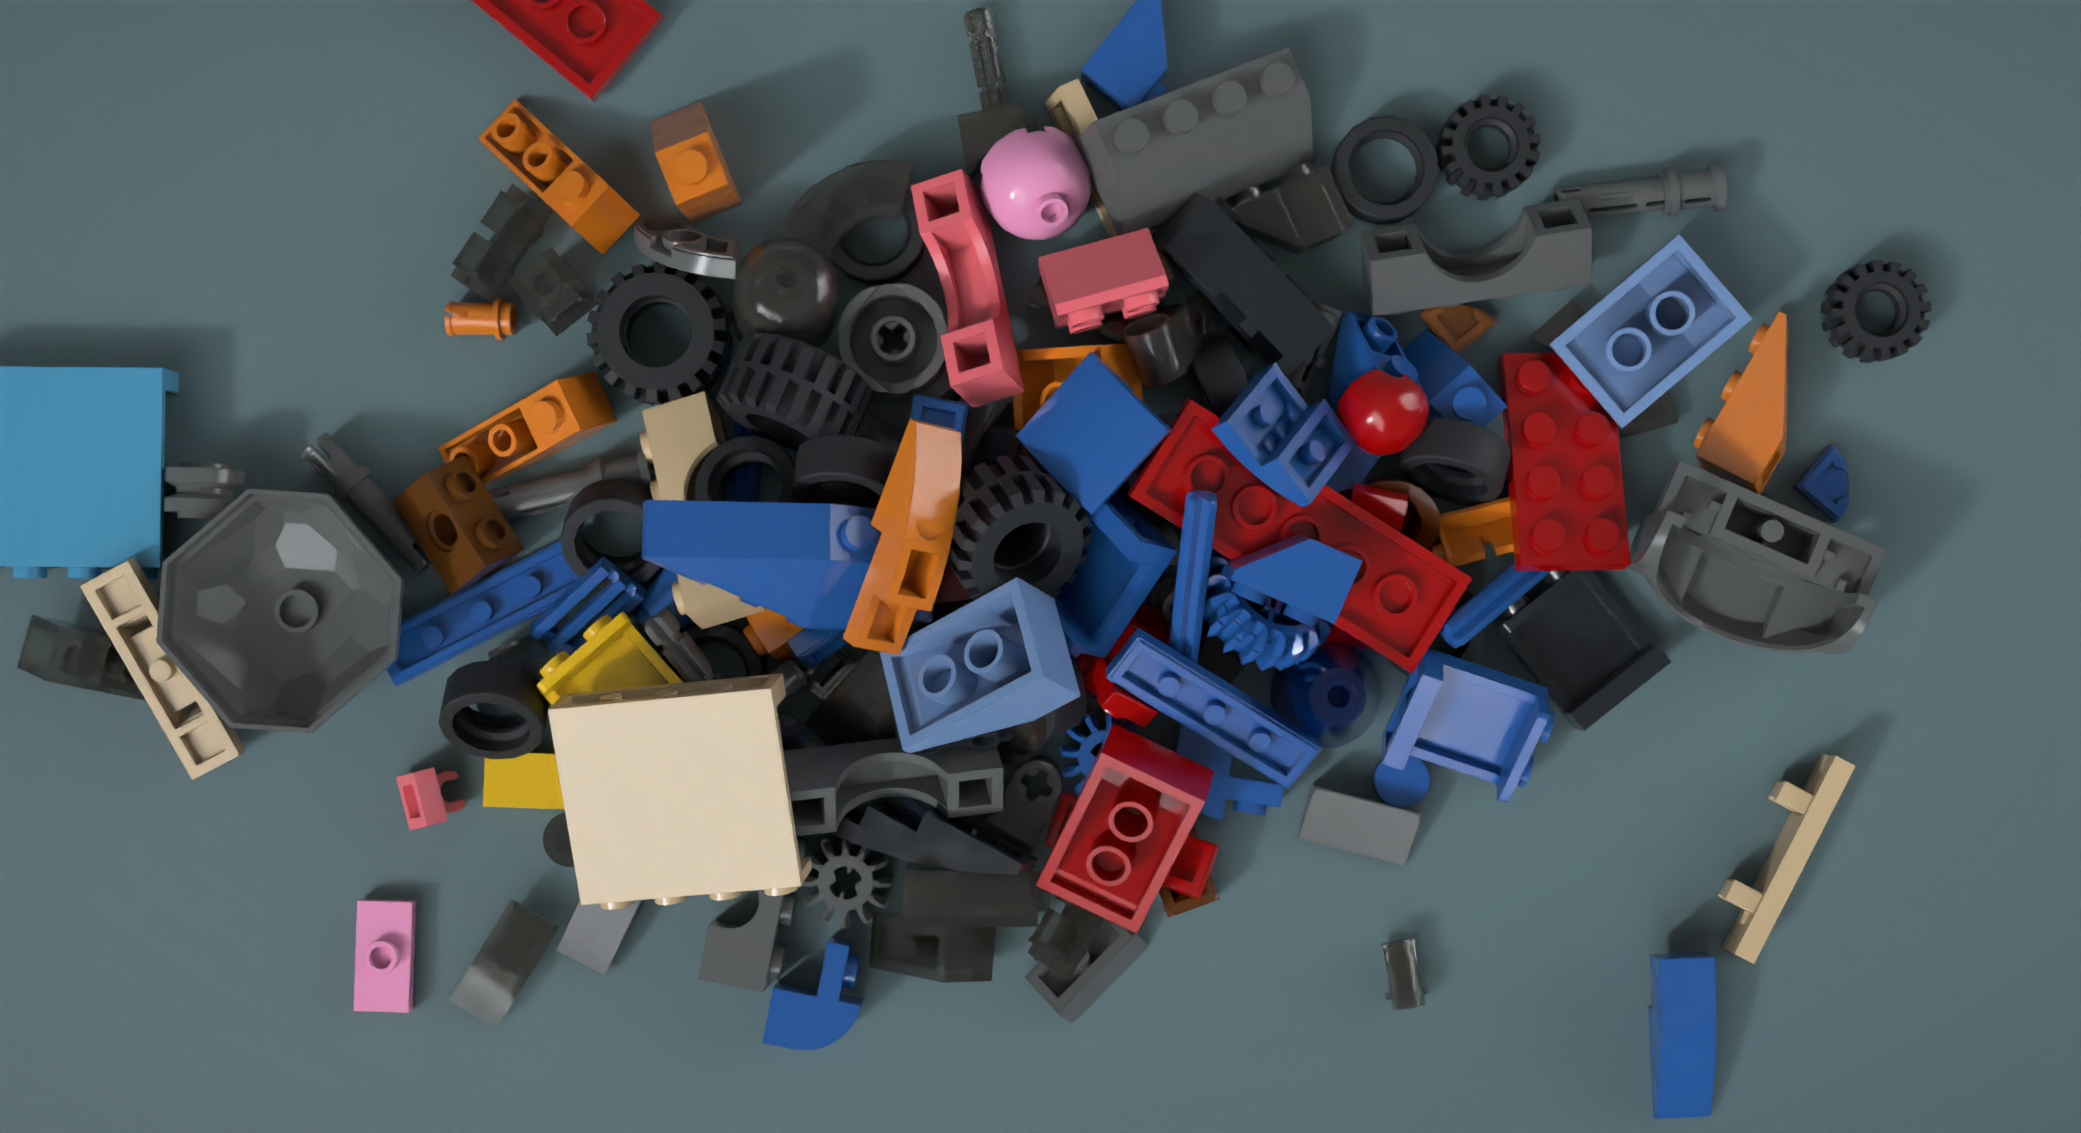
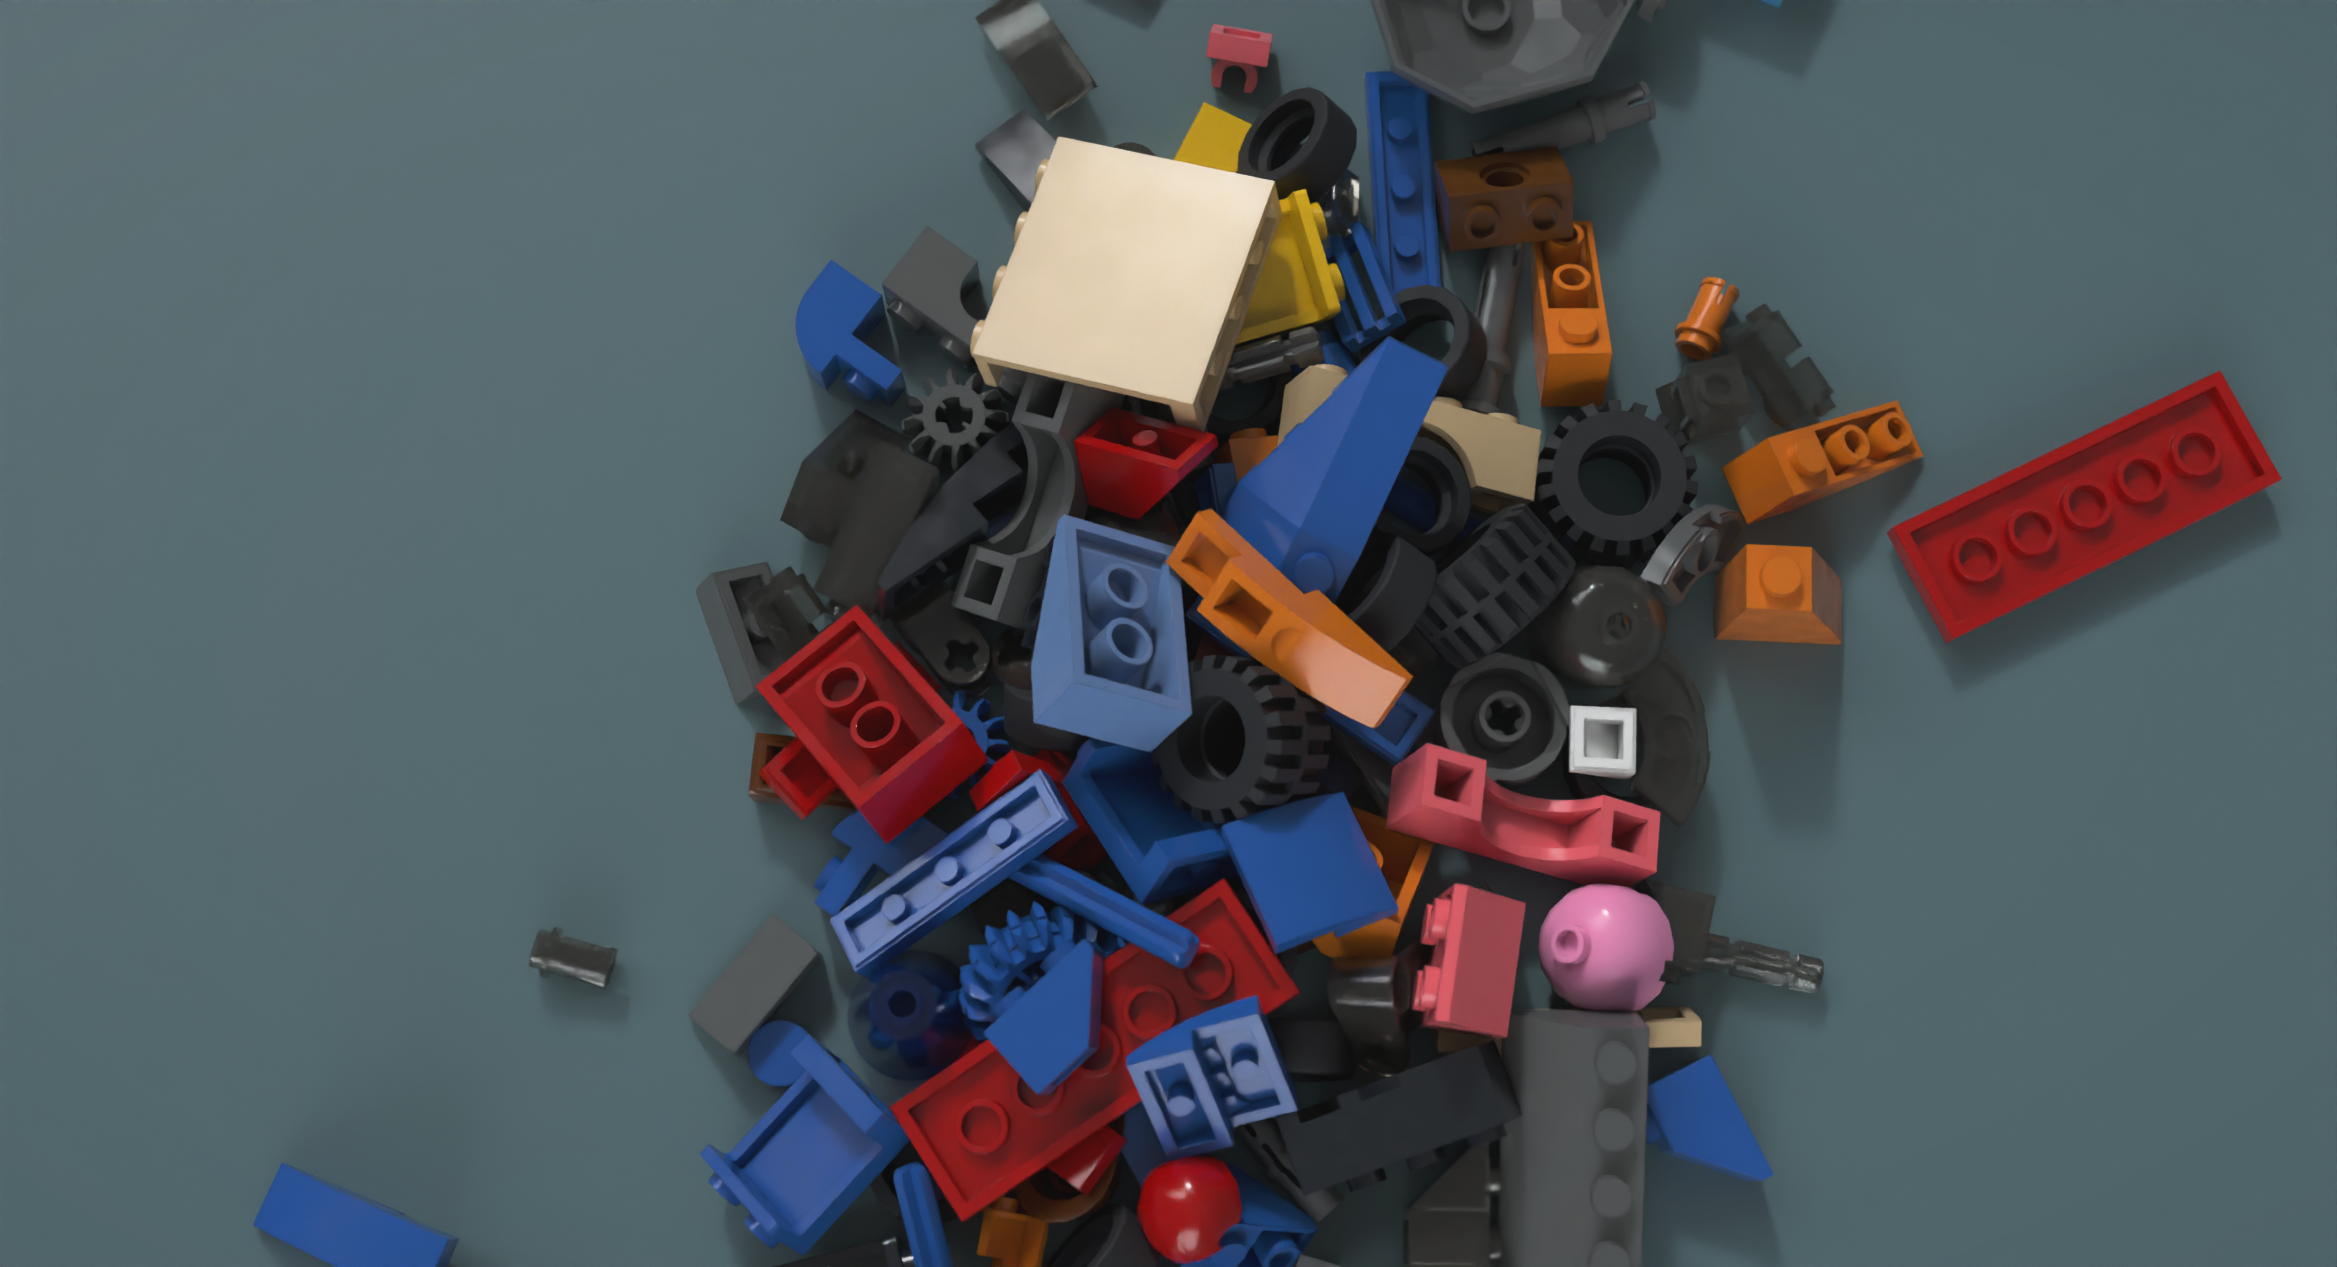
camera: 110 degrees right, 10 degrees down
(824, 715) = (1137, 460): none -> red slope
(877, 253) = (1602, 741): none -> white slope

